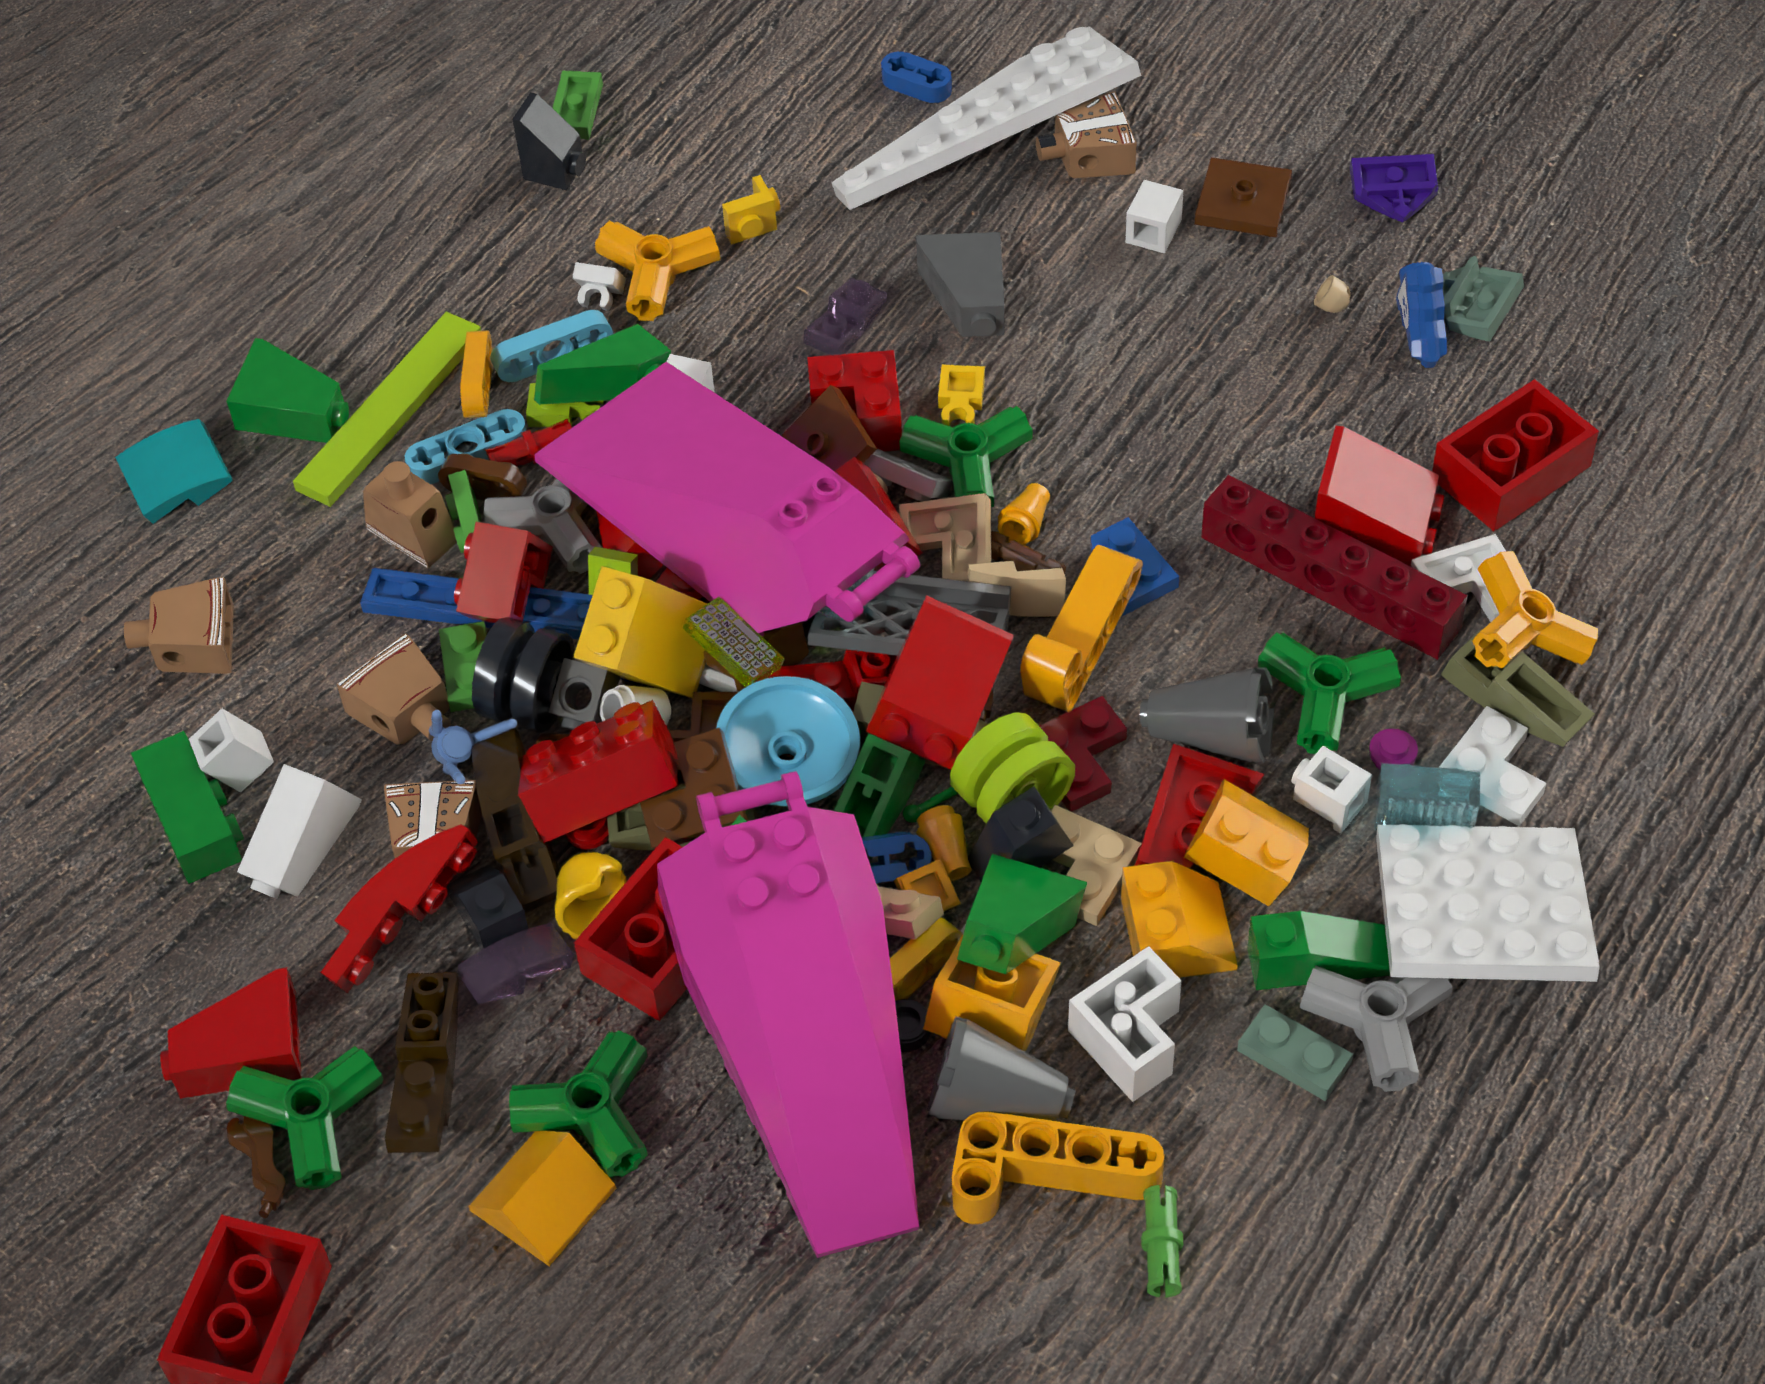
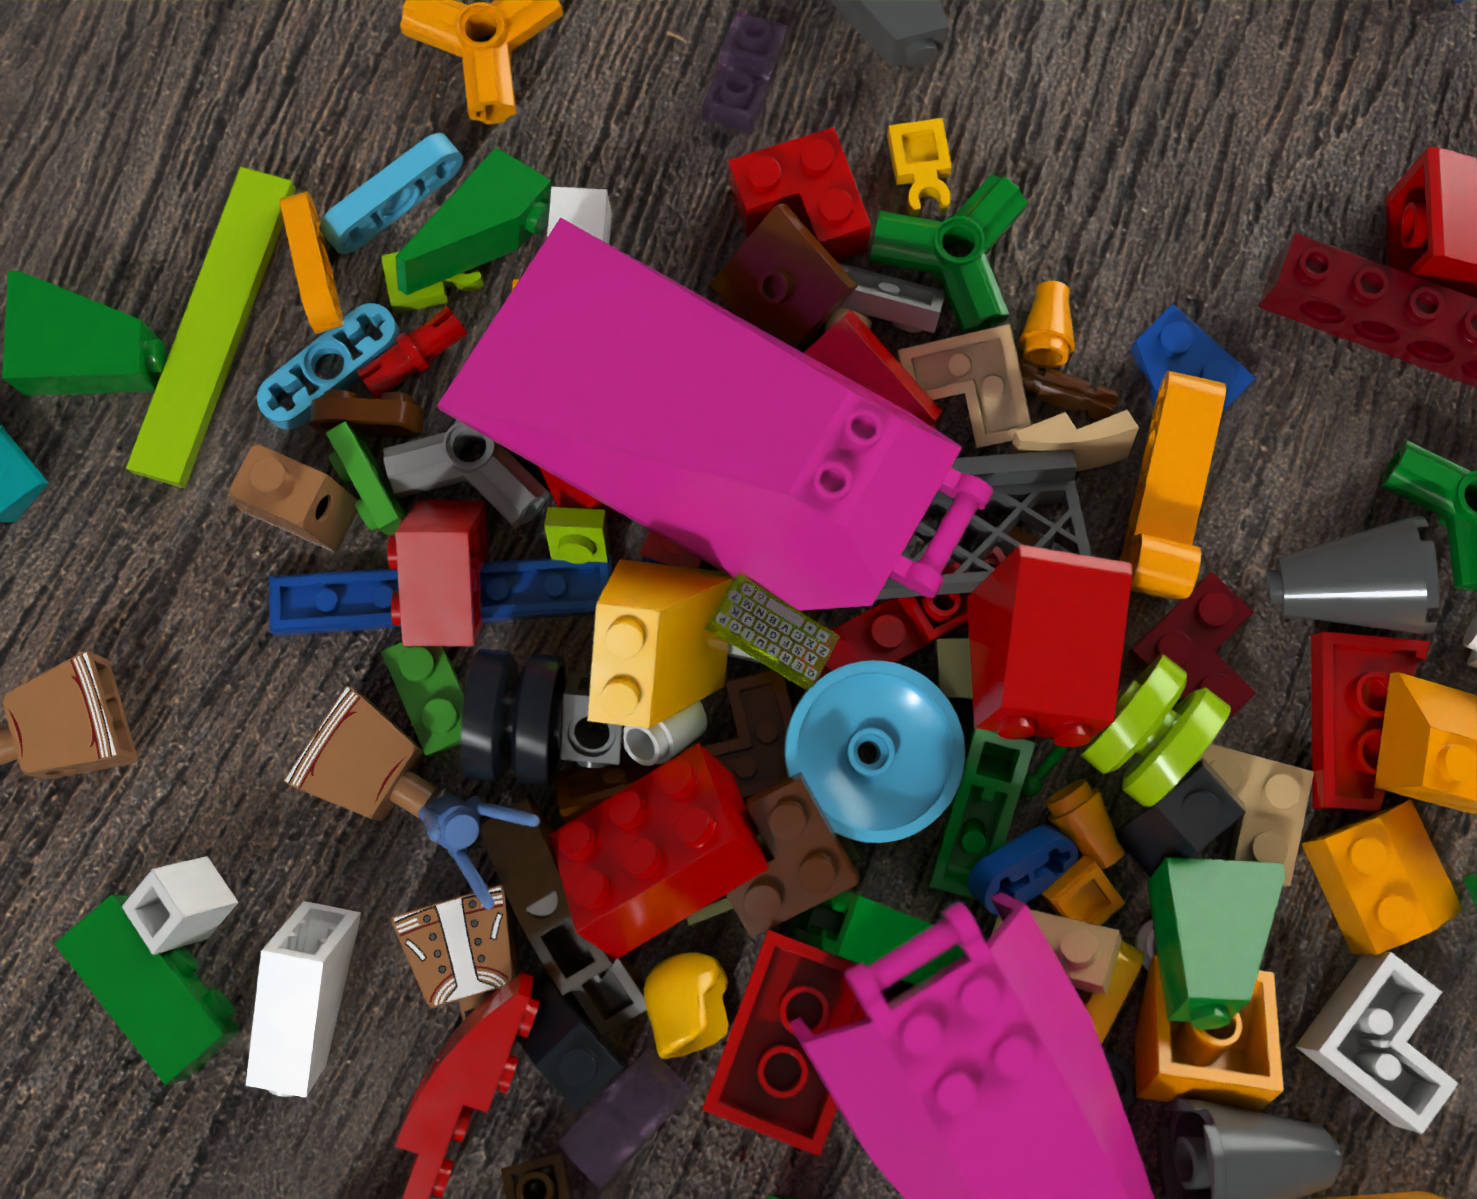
camera: 15 degrees left, 25 degrees up
(598, 280) = (421, 81): white tile -> none

